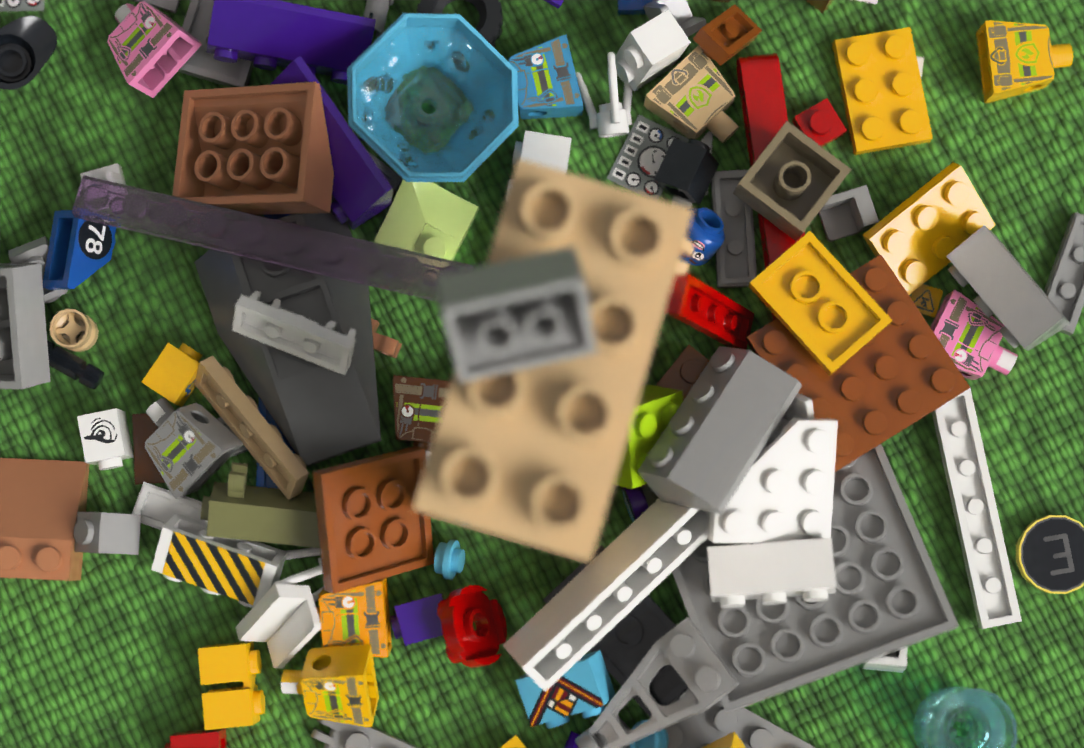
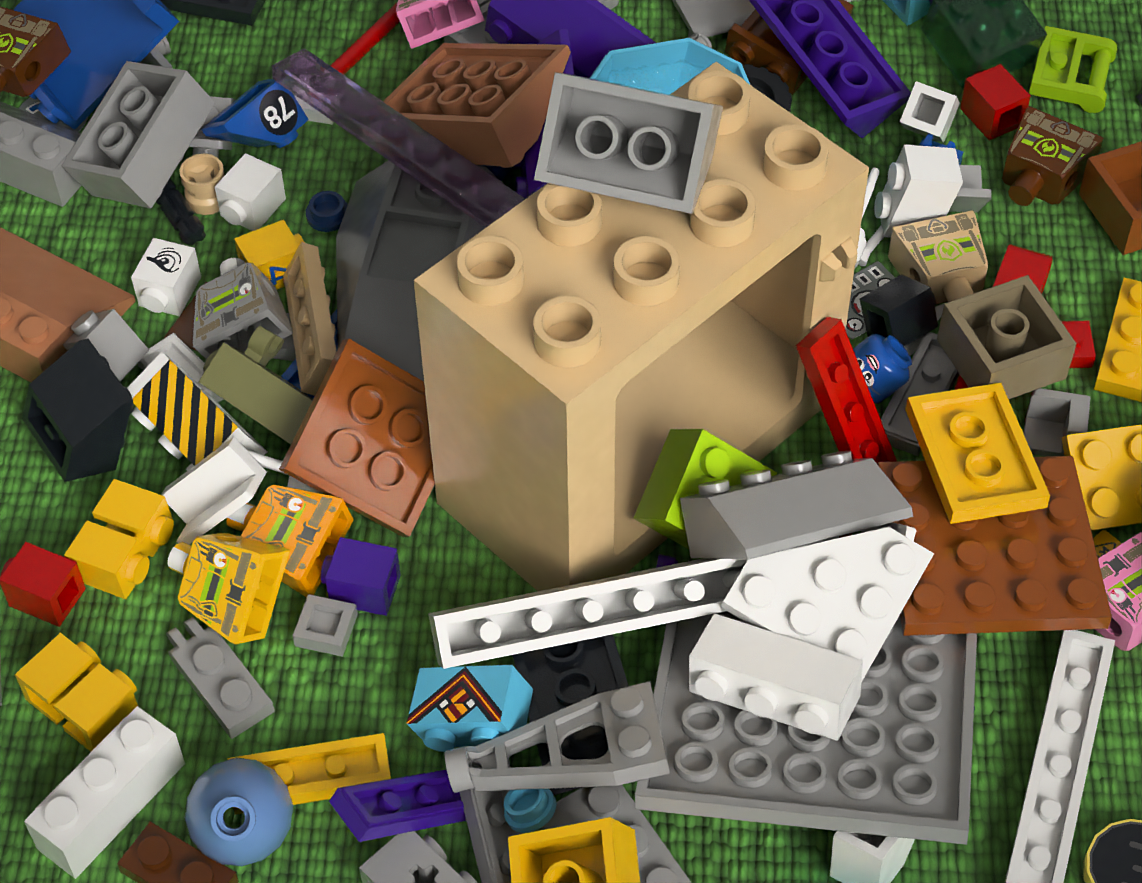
camera: 30 degrees right, 30 degrees down
(105, 109) = (366, 41): none -> red bar
(116, 320) = (250, 192): none -> white brick
(131, 607) = (79, 413): none -> black slope
(188, 301) = (326, 211): none -> dark blue plate
(294, 333) = (400, 226): white plate -> none
(420, 670) = (325, 625): none -> light grey plate
(449, 559) = (427, 536): medium azure plate -> none
(462, 642) = (389, 601): red plate -> none
(727, 35) = (1007, 218): dark orange plate -> none

